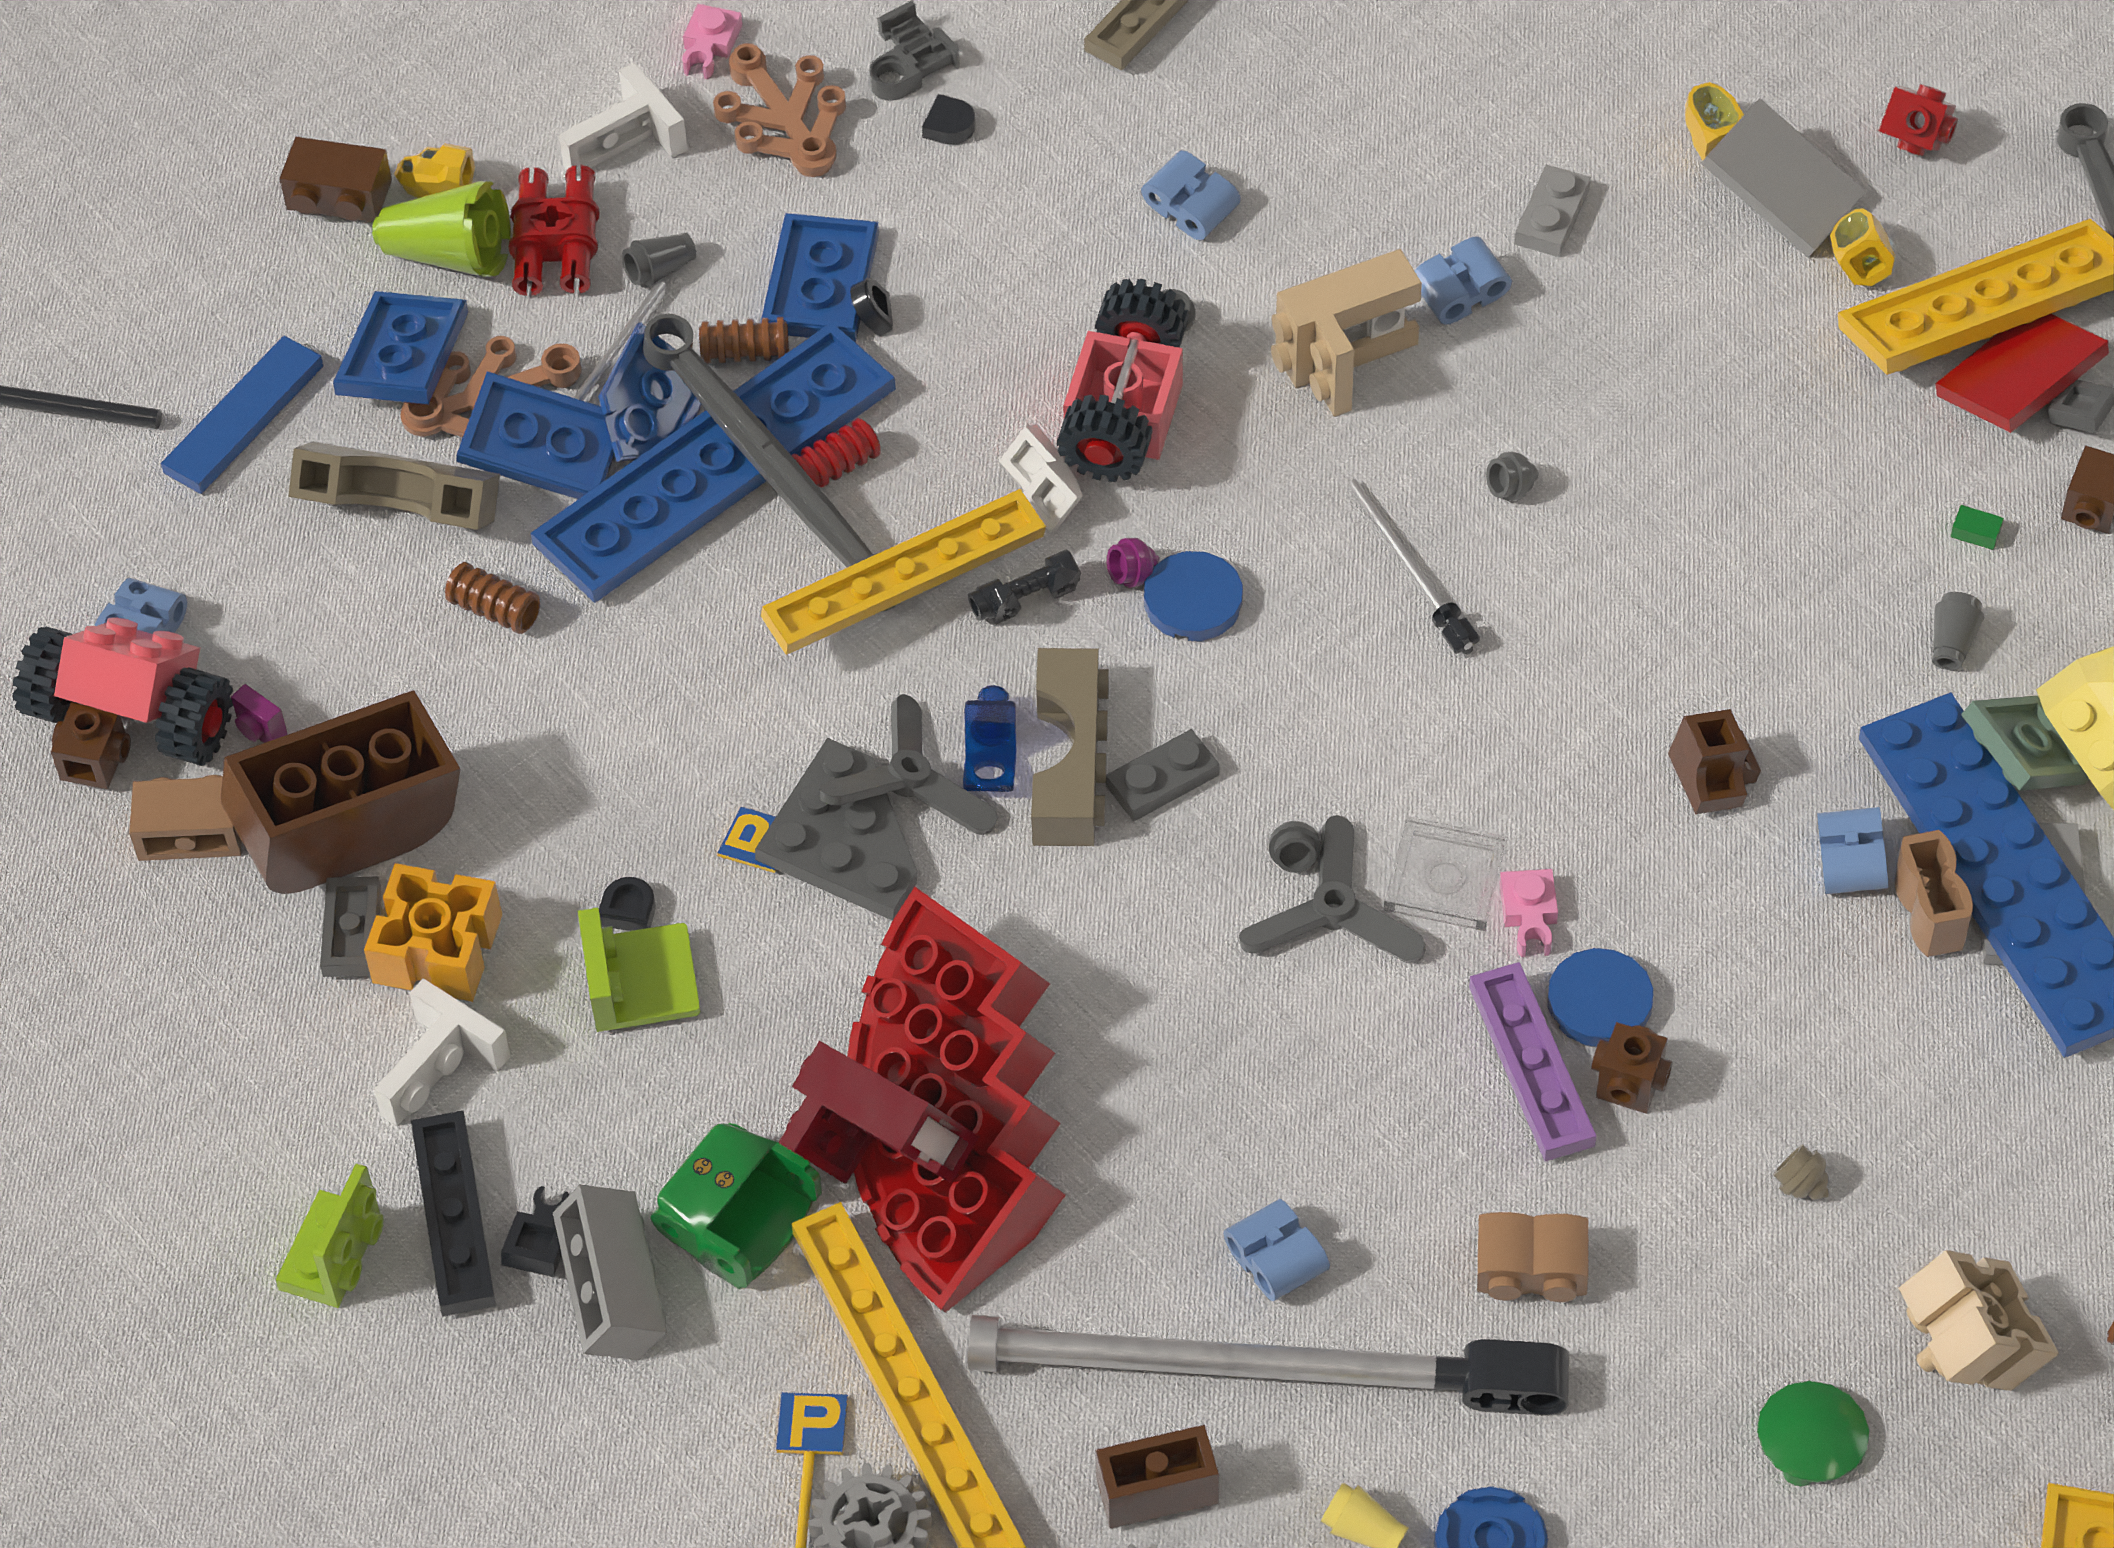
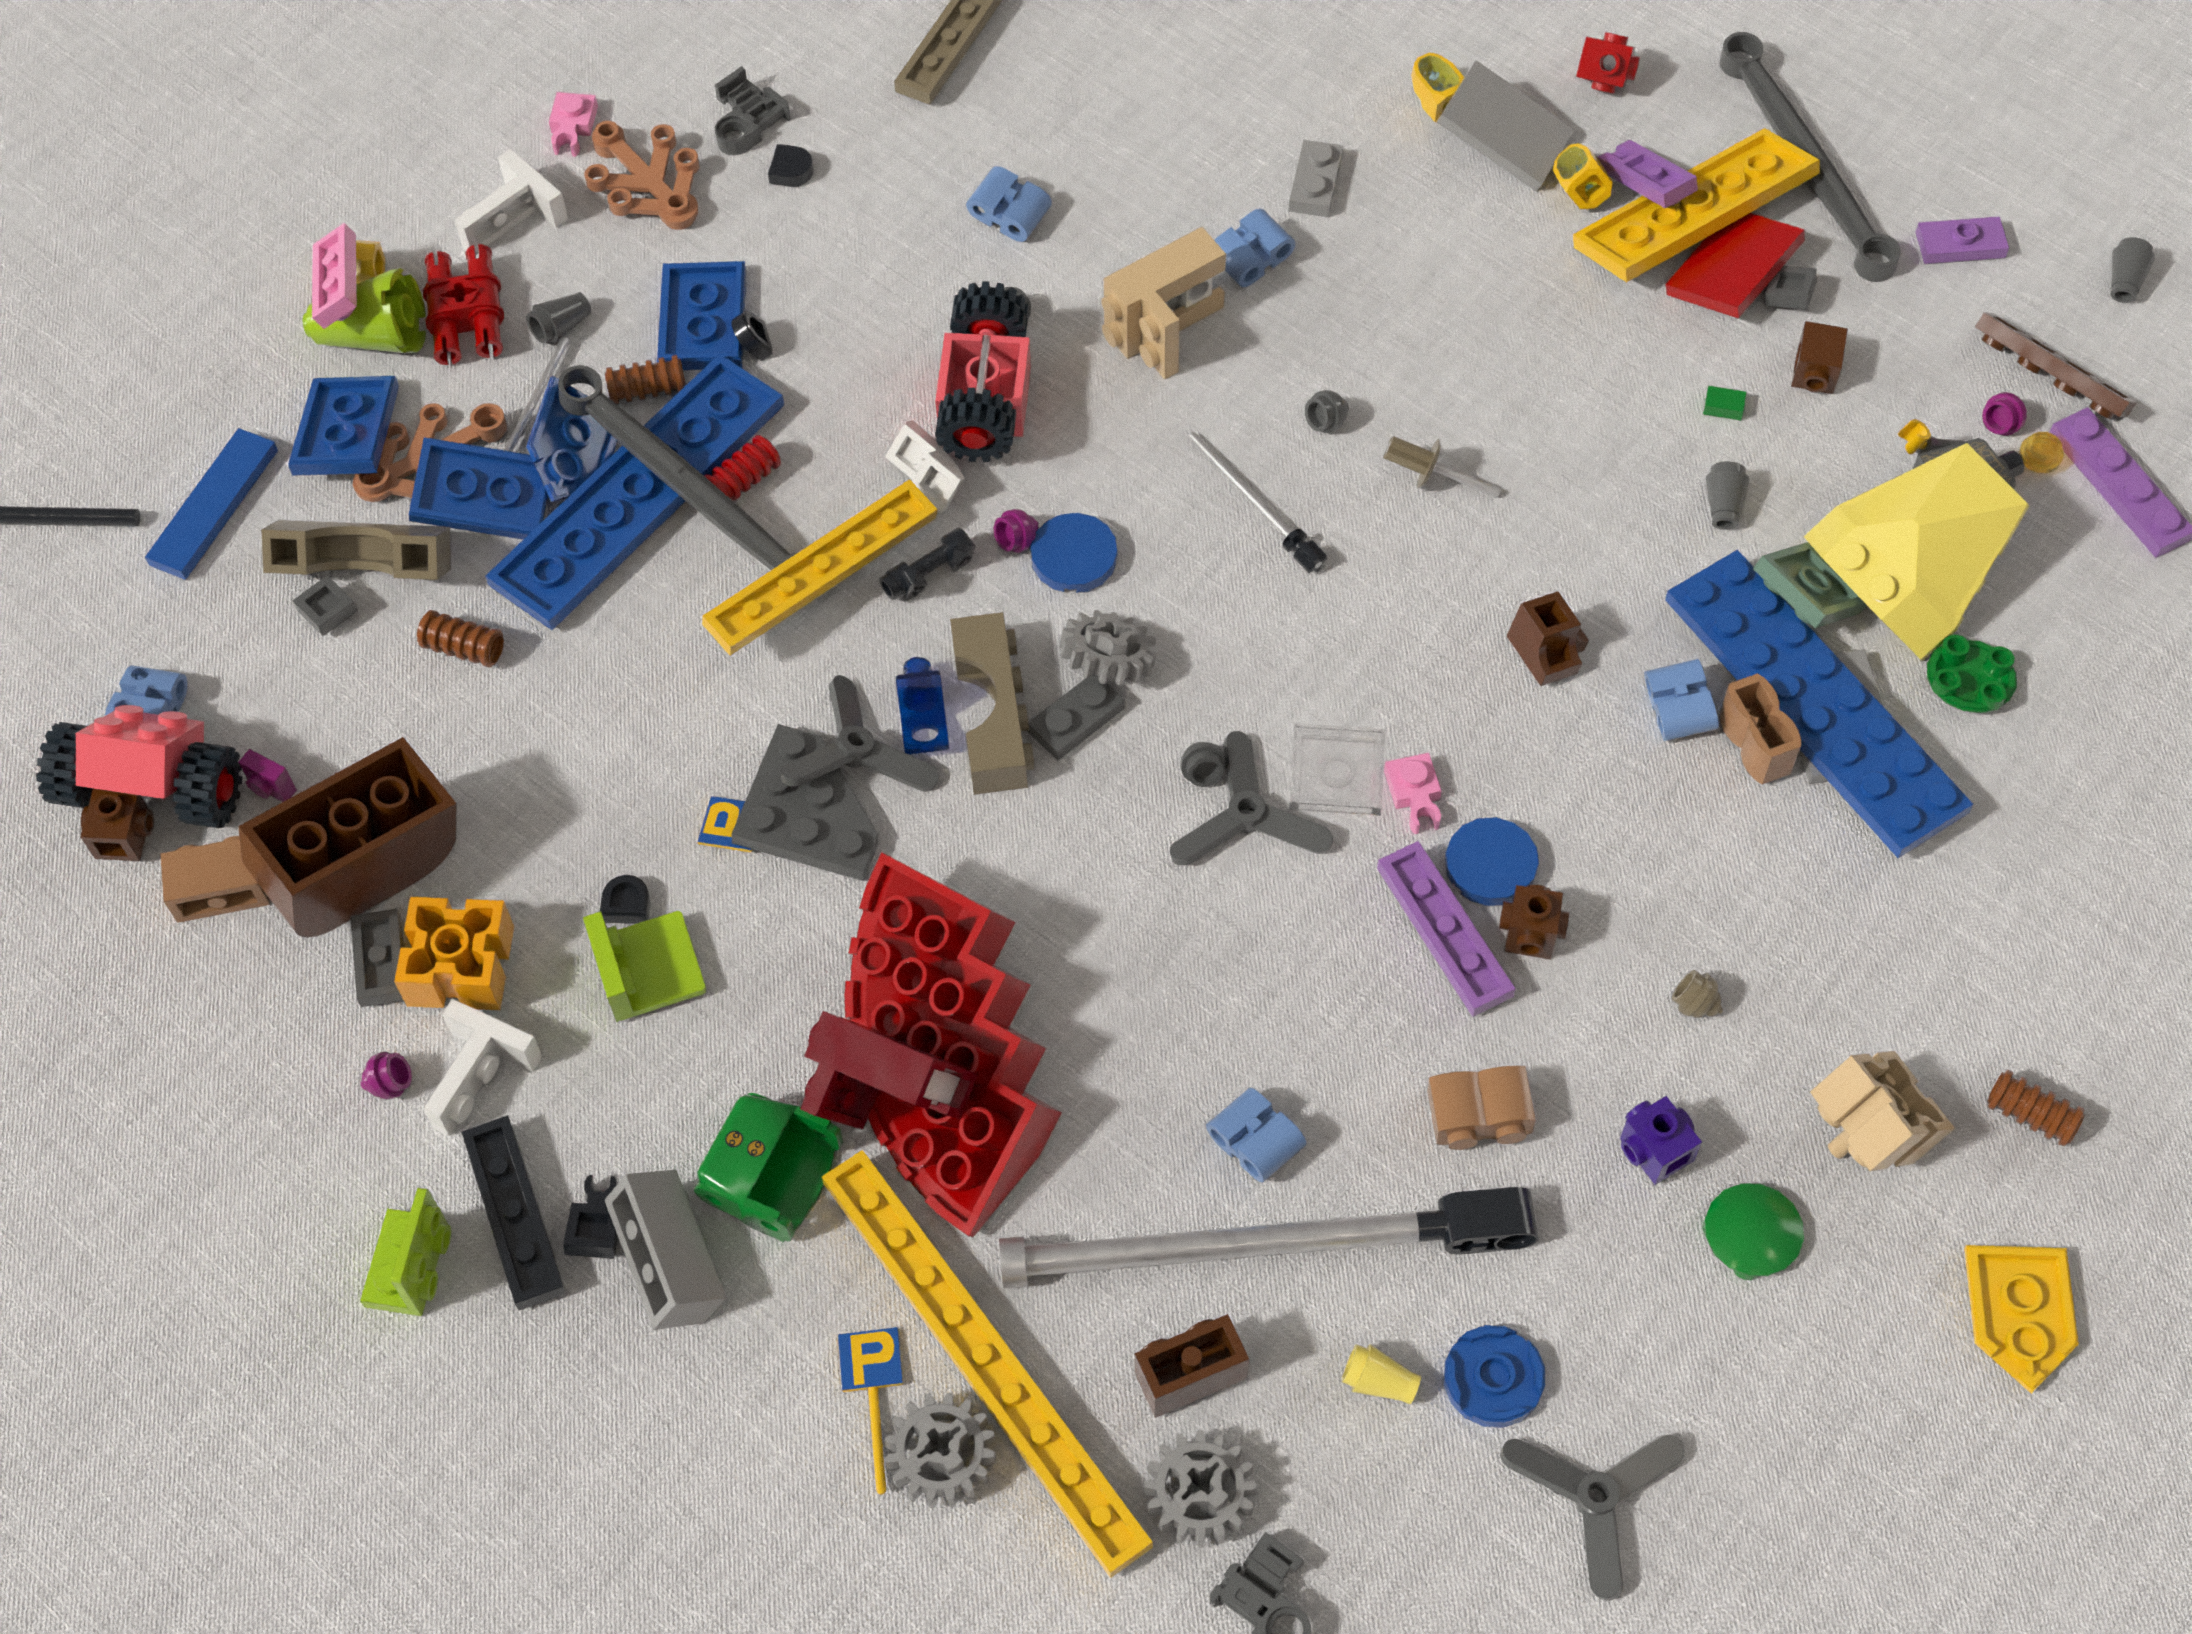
camera: 10 degrees left, 5 degrees up
(335, 179) = (263, 284): reddish brown brick -> none
(339, 1051) = (386, 1075): none -> magenta plate
(349, 542) = (325, 605): none -> dark grey plate
(415, 180) = (334, 276): none -> bright pink plate
(1210, 704) = (1108, 647): none -> light grey gear
(1610, 546) = (1425, 462): none -> dark tan piece
(1724, 1318) = (1659, 1139): none -> dark purple brick
(1938, 254) = (1648, 174): none -> medium lavender plate

